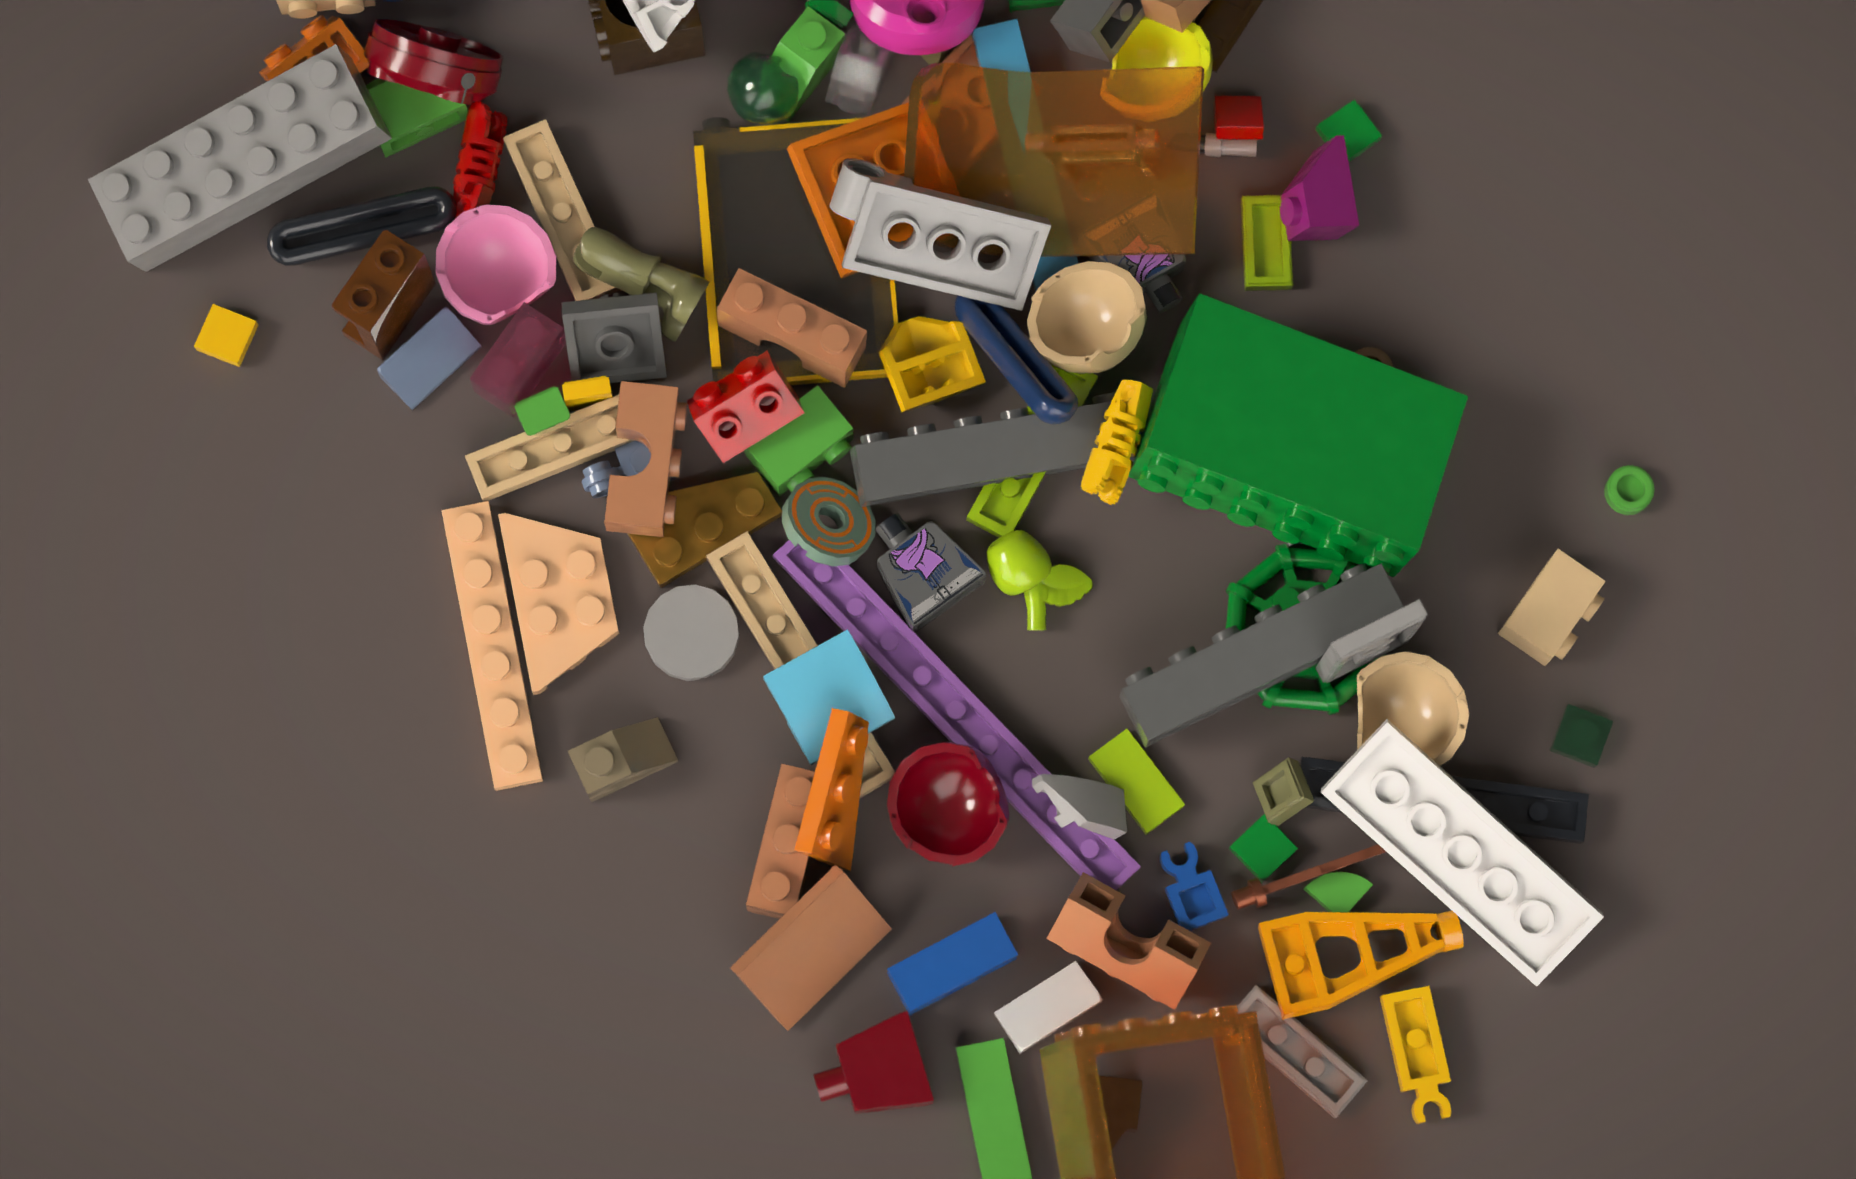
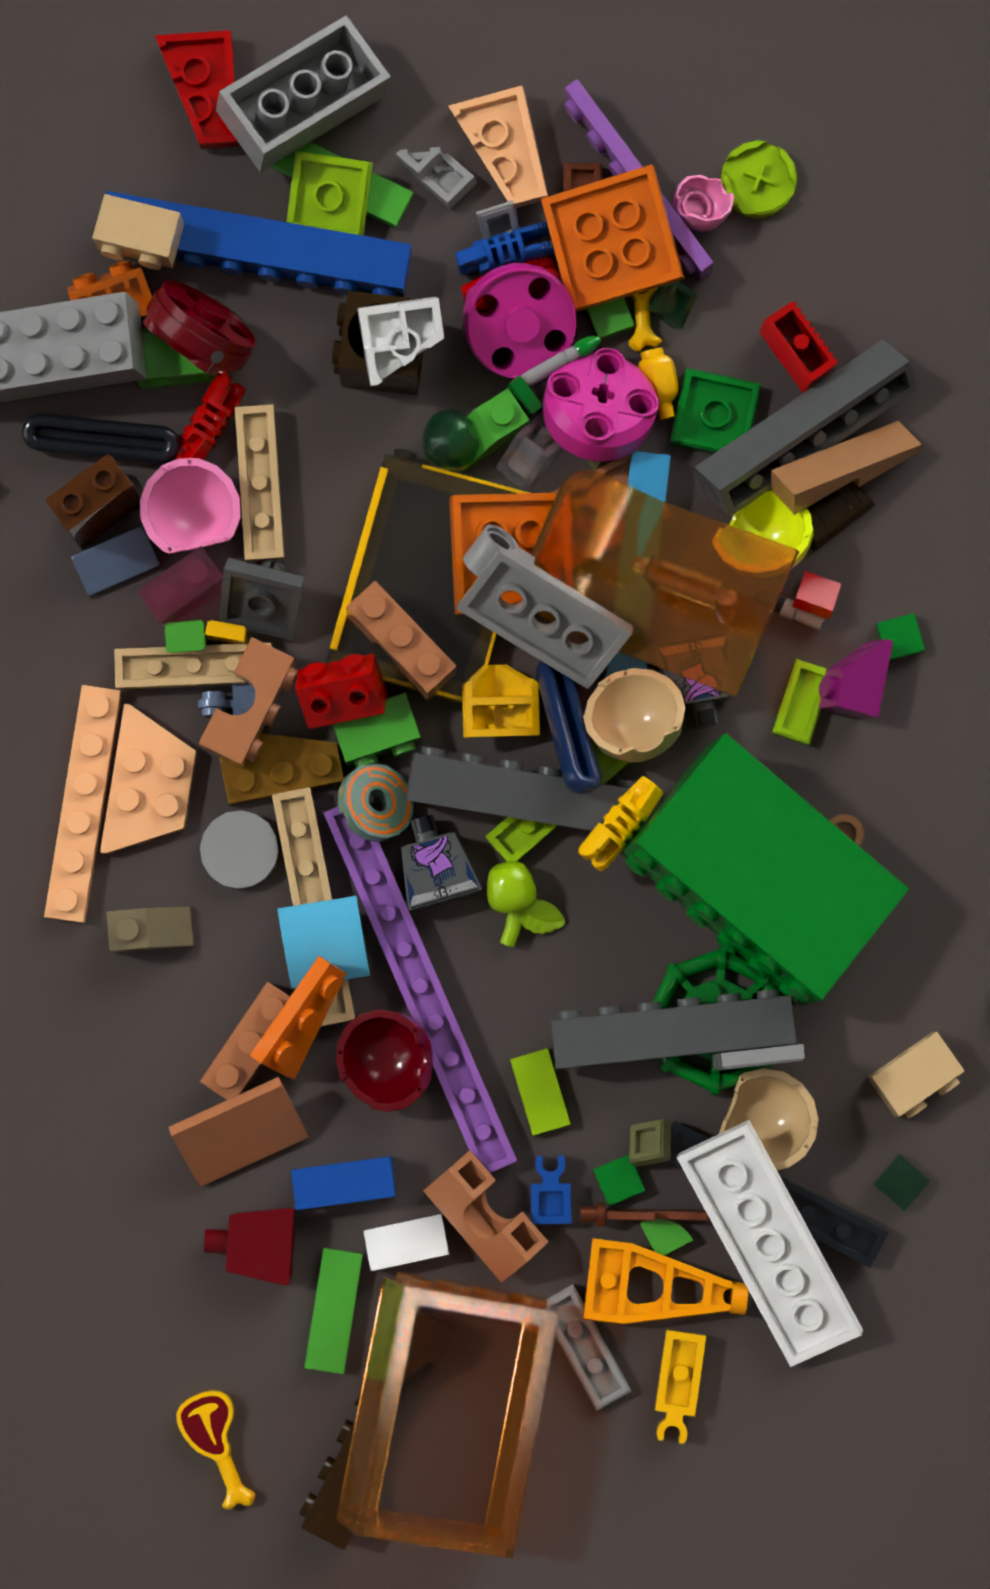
camera: 25 degrees right, 5 degrees up
(636, 273) = (298, 555): olive piece -> none
(1085, 801) = (491, 1097): light grey slope -> none

